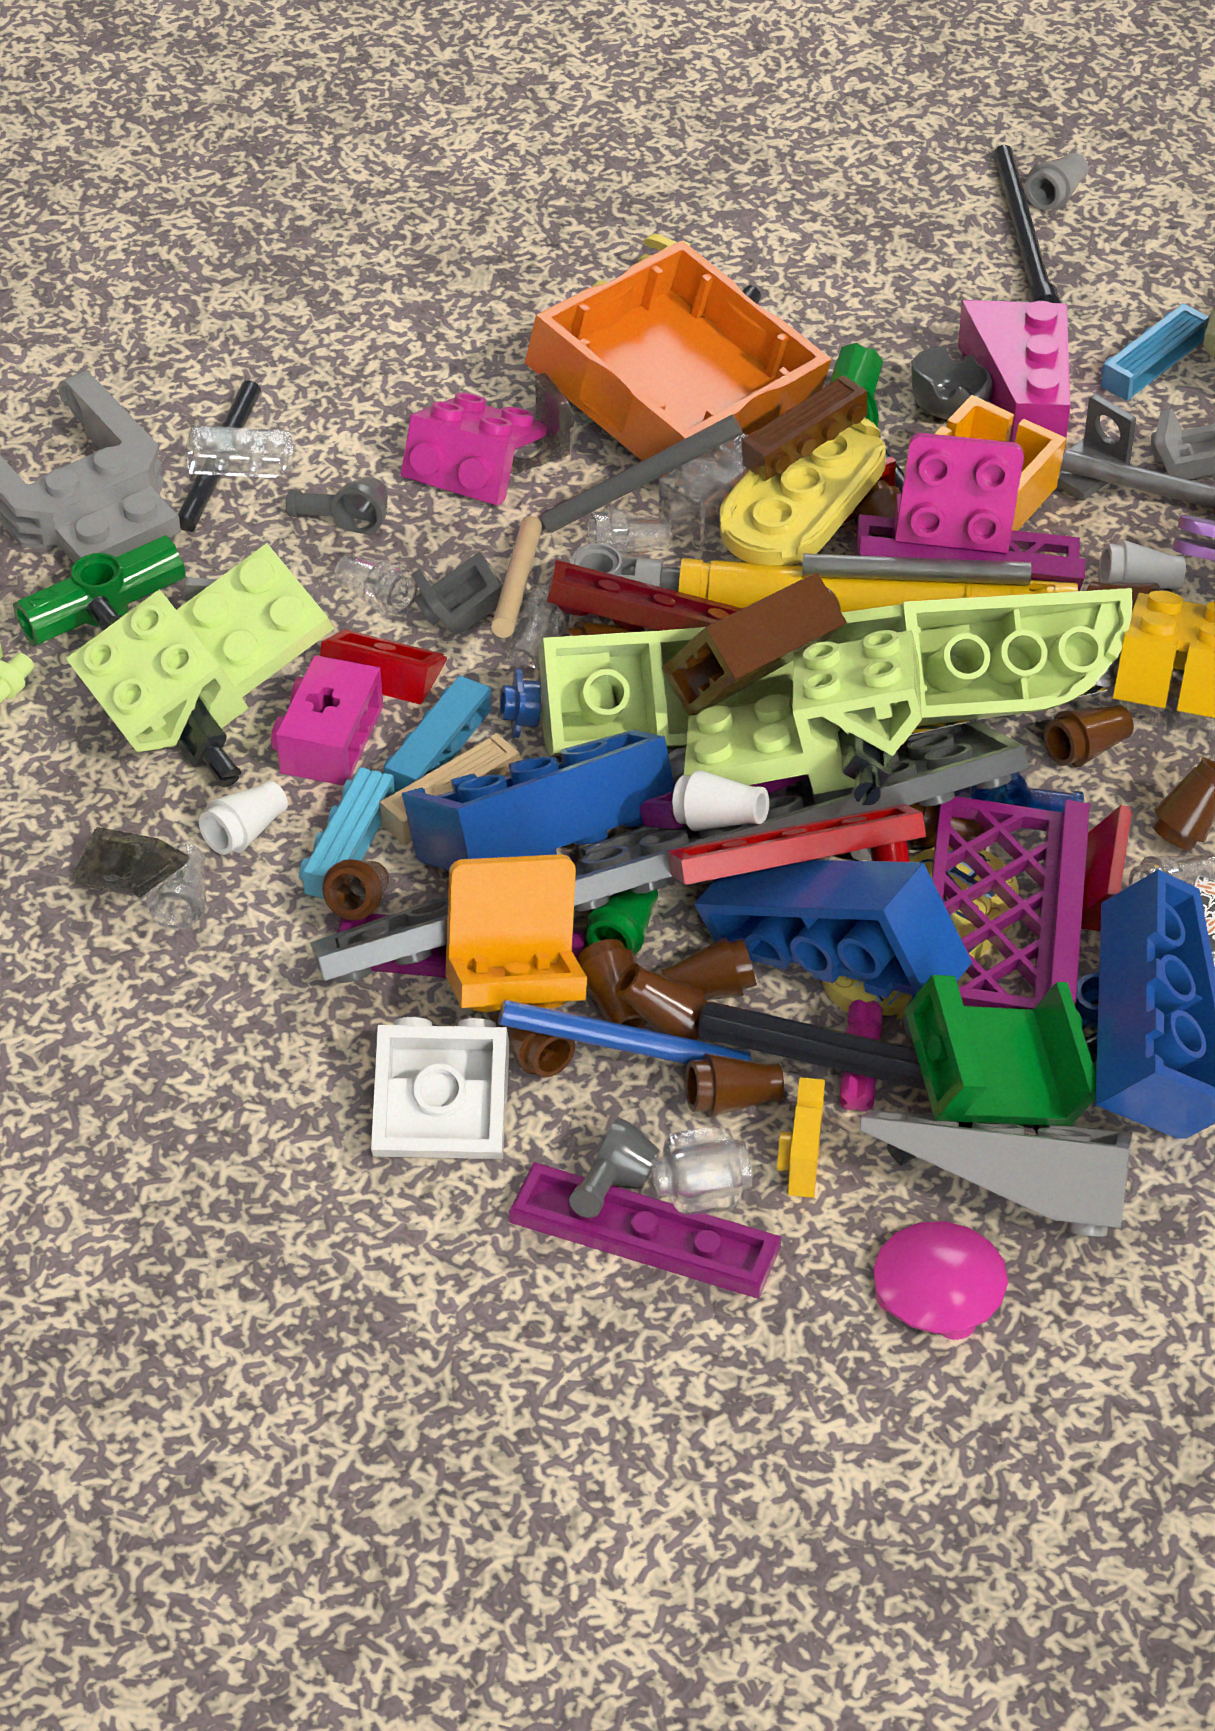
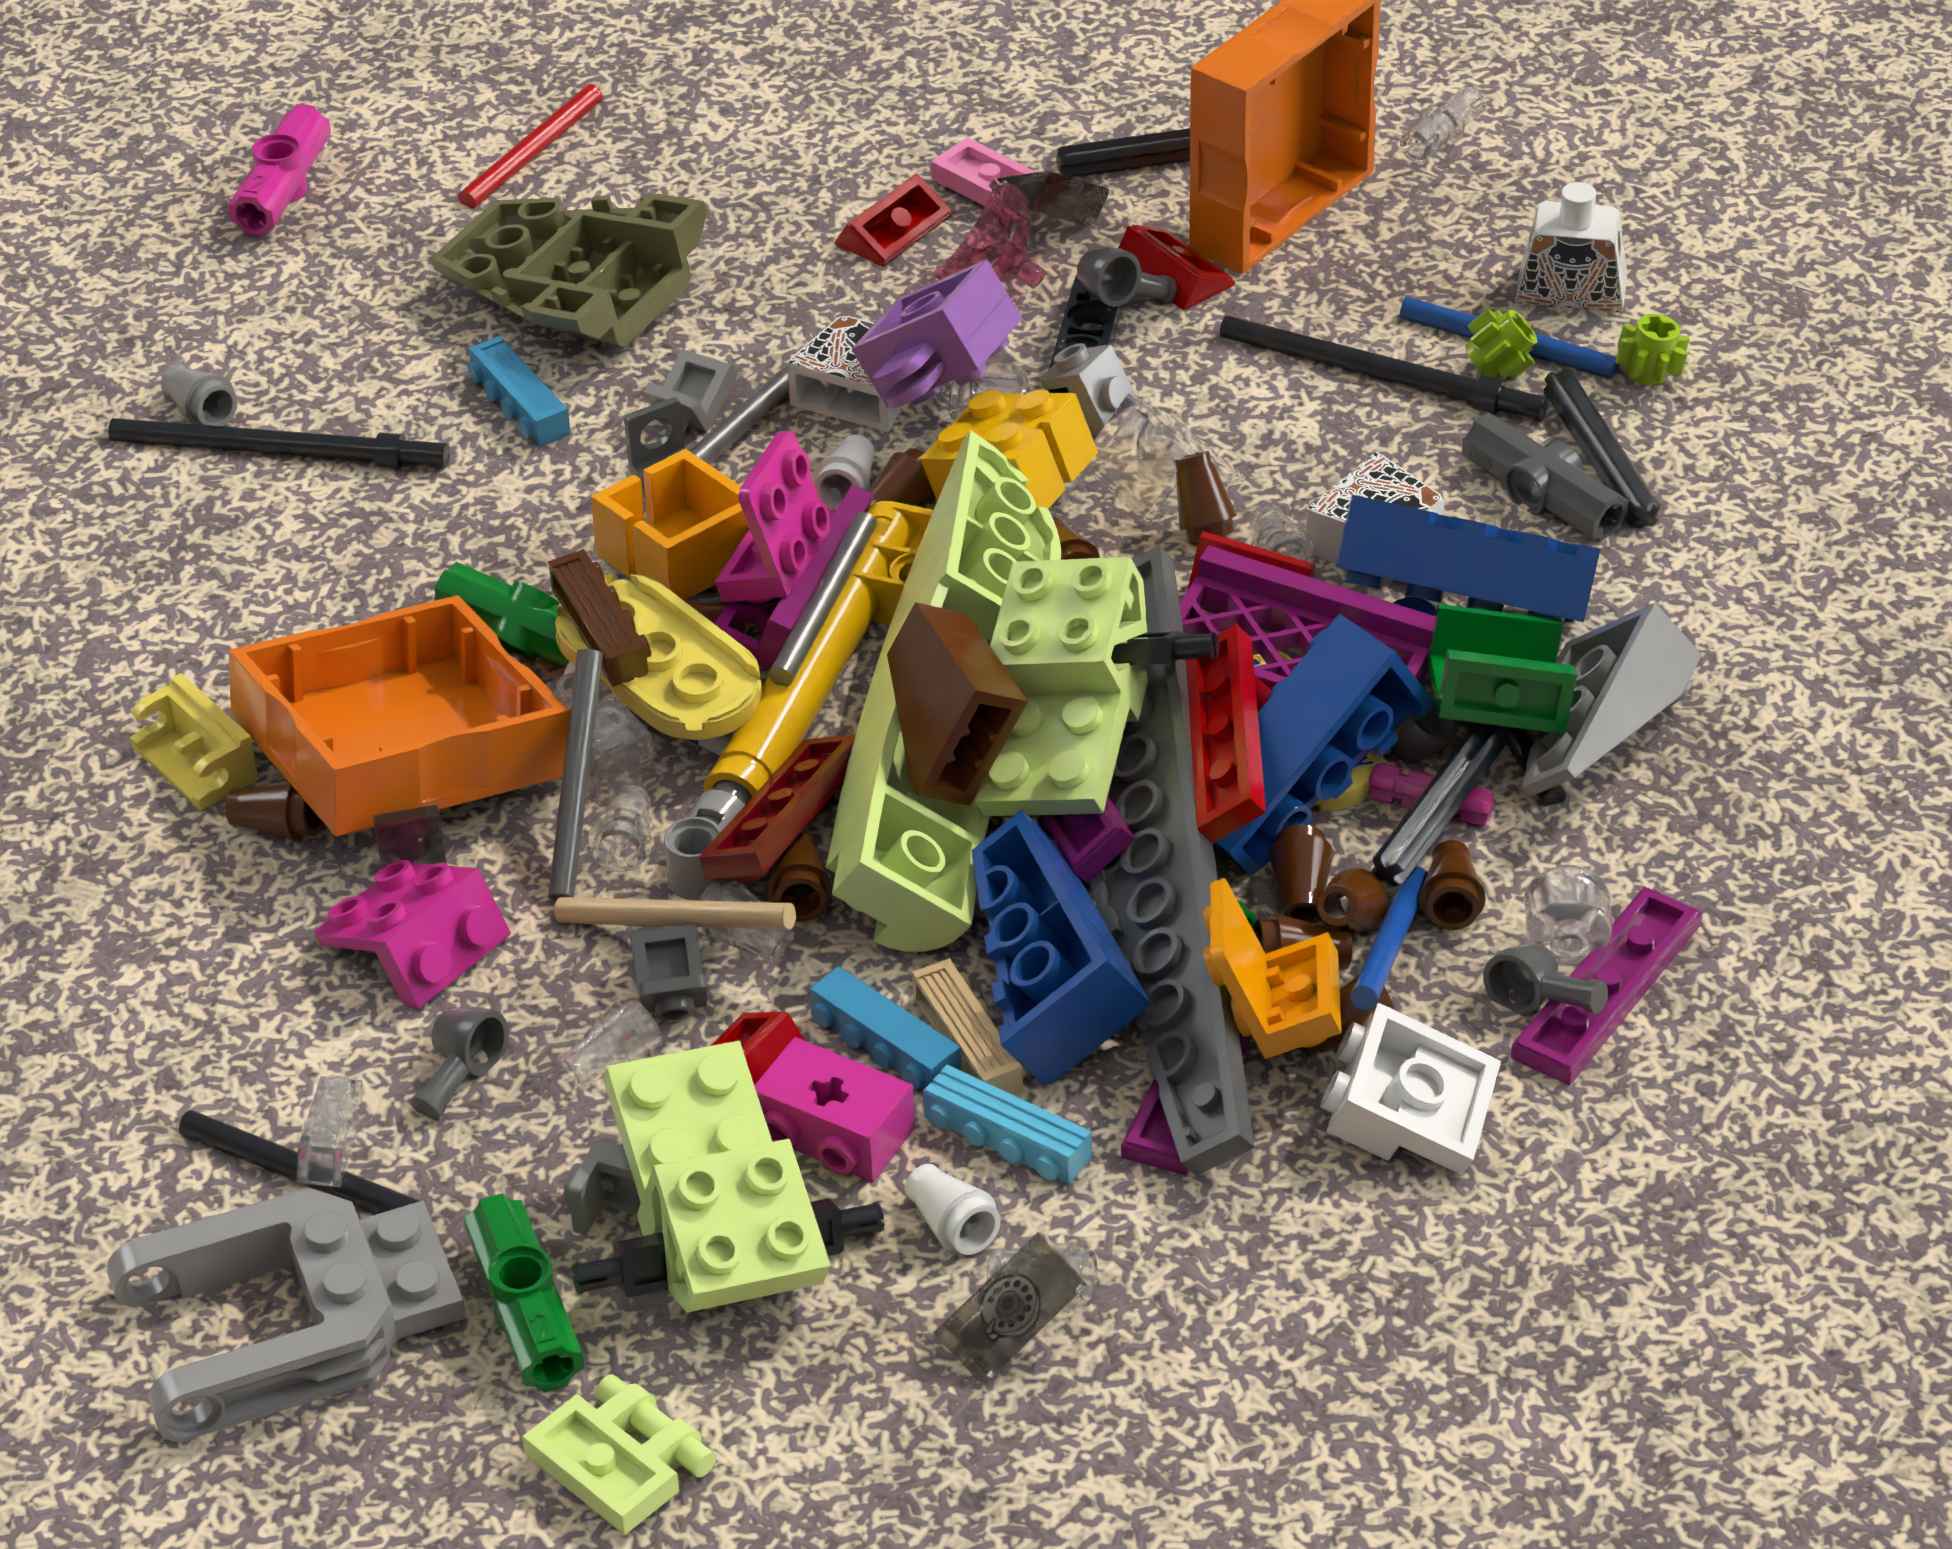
camera: 75 degrees left, 5 degrees down
(345, 892) = (1117, 1109): reddish brown cone -> none
(520, 703) = (868, 938): blue plate -> none
(716, 802) = (1144, 780): white cone -> none
(800, 1149) = (1539, 840): yellow plate -> none
(940, 1278) = (1709, 795): dark pink dish -> none
(945, 385) = (512, 536): dark grey hair -> none
(1025, 354) = (513, 474): wedge -> none

